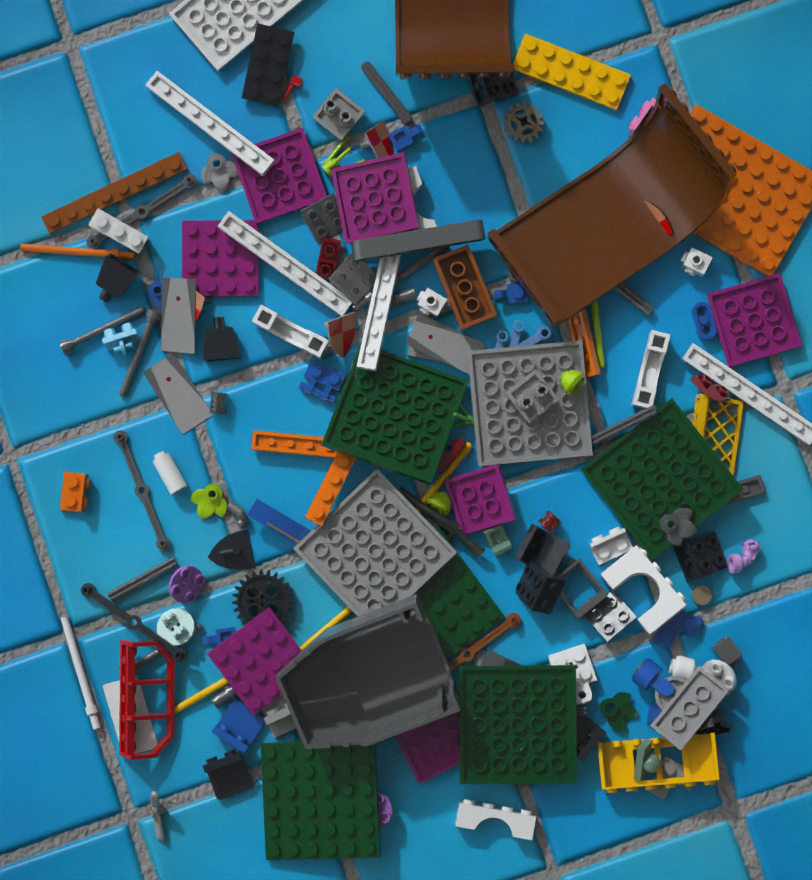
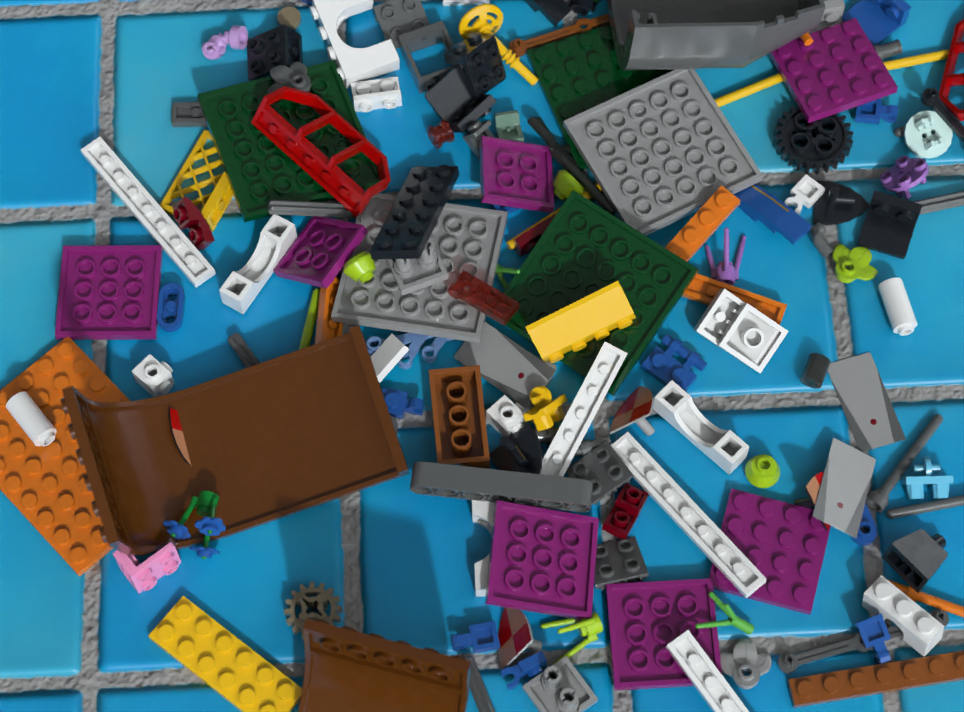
camera: 165 degrees left, 20 degrees down
(121, 437) = (951, 365): dark grey piece -> none
(134, 213) = (874, 634): none -> blue plate
(190, 536) = (889, 224): none -> black bracket
(220, 342) = (794, 441): black torso -> none
(234, 197) = (733, 619): none -> bright green plant
(245, 316) = (762, 471): none -> lime cone
(258, 550) = (804, 193): none -> white plate
(280, 417) = (740, 330): none -> white slope
(303, 465) = (725, 271): none -> medium lavender plant
(363, 126) = (529, 667): none -> blue plate
(396, 380) = (581, 322): none -> yellow slope
(406, 314) = (545, 409): none -> yellow hips
(413, 274) = (519, 452): none -> black shield
(473, 381) = (483, 297): none -> clear red plate
(518, 527) = (476, 131): none -> dark grey bracket
(532, 323) = (388, 356): none -> white tile
(544, 435) = (415, 213): none -> black plate
(544, 622) = (484, 27): none -> yellow dish
(607, 390) = (320, 251): none -> magenta plate
(621, 169) = (209, 525): none -> plant
(638, 460) = (311, 158): none -> red plate
(769, 199) = (31, 419): none -> white brick

